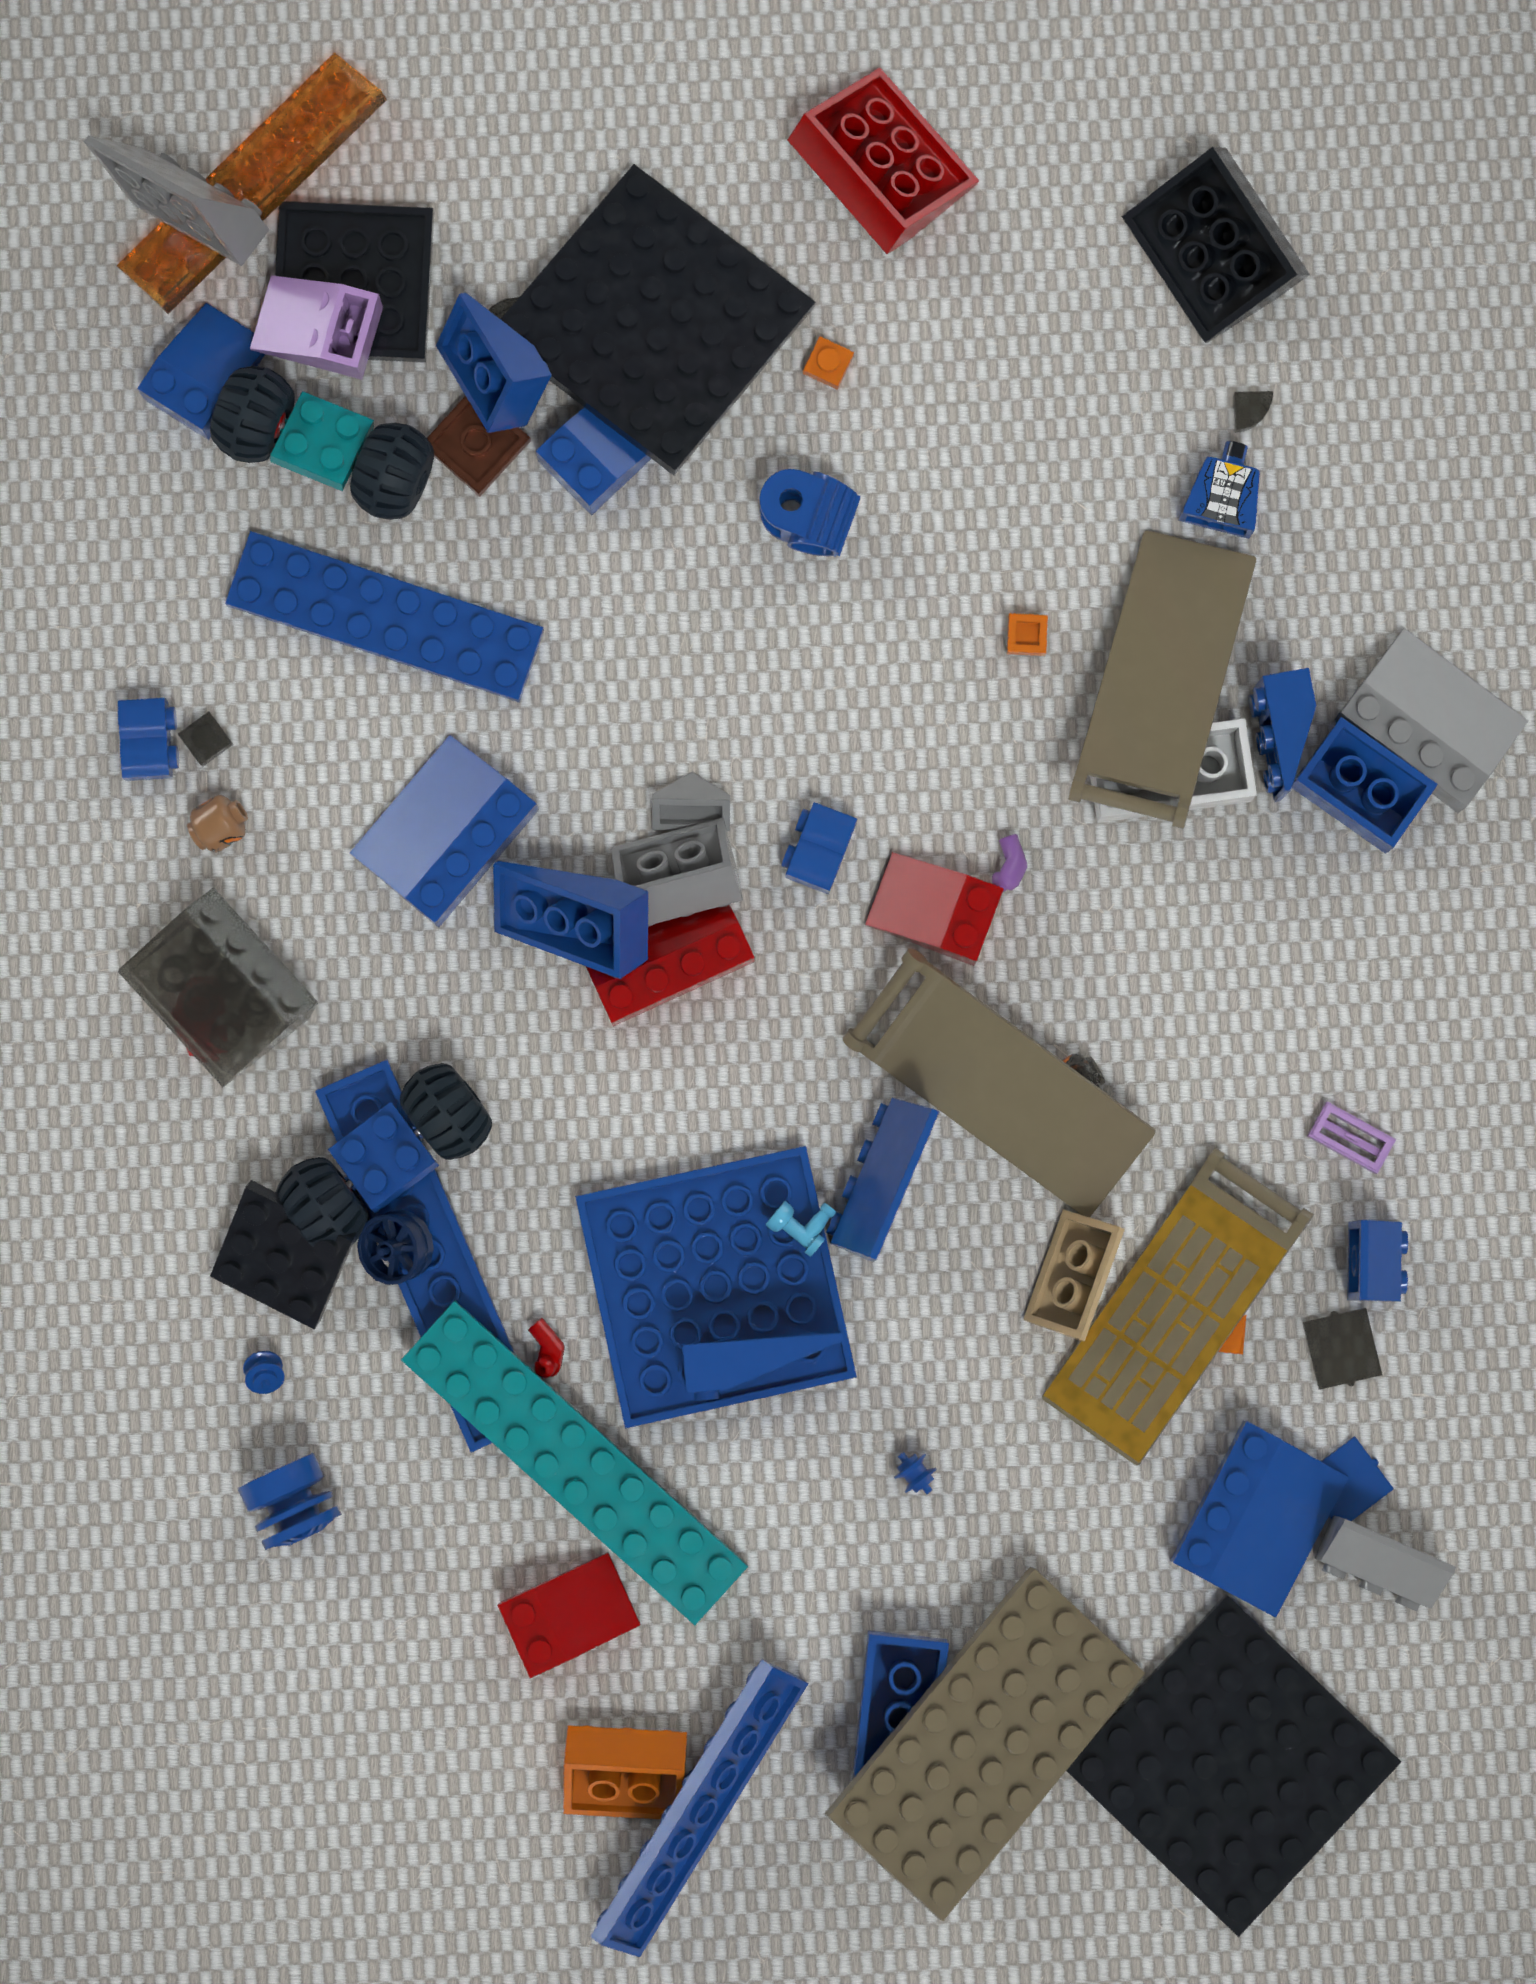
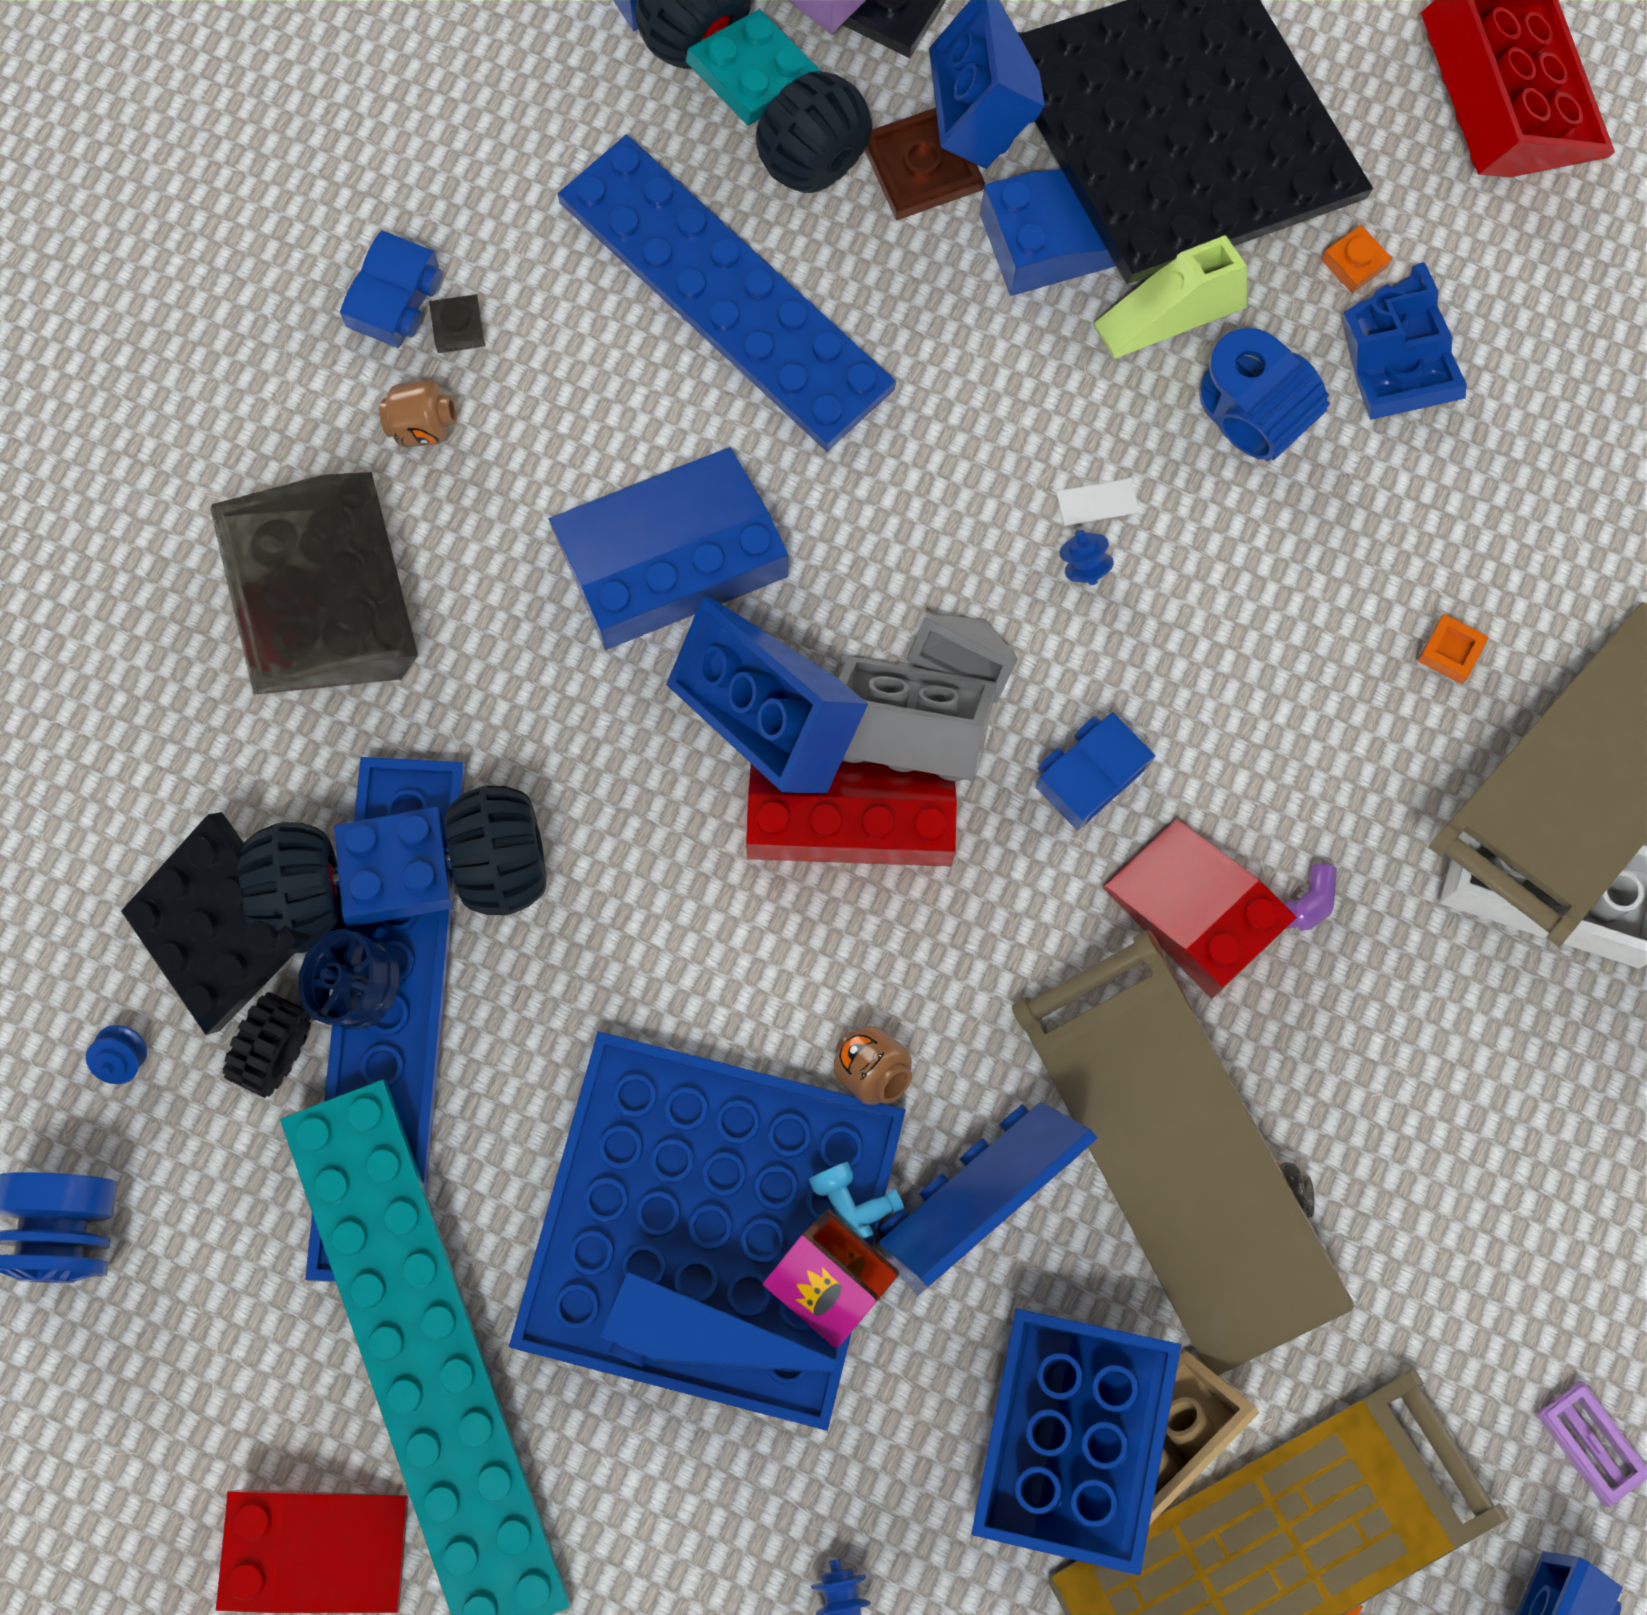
camera: 25 degrees right, 10 degrees down
(362, 1316) = (266, 1044): none -> black tyre
(550, 1352) = (470, 1205): red arm -> none
(713, 467) = (1179, 297): none -> yellowish green slope
(729, 644) = (1097, 501): none -> white sticker
(742, 695) = (1086, 557): none -> blue wheel
(769, 1127) = (873, 1066): none -> medium nougat head
(812, 1281) = (831, 1278): none -> piece
(892, 419) = (1403, 348): none -> blue slope
(1017, 1304) = (1077, 1441): none -> blue slope

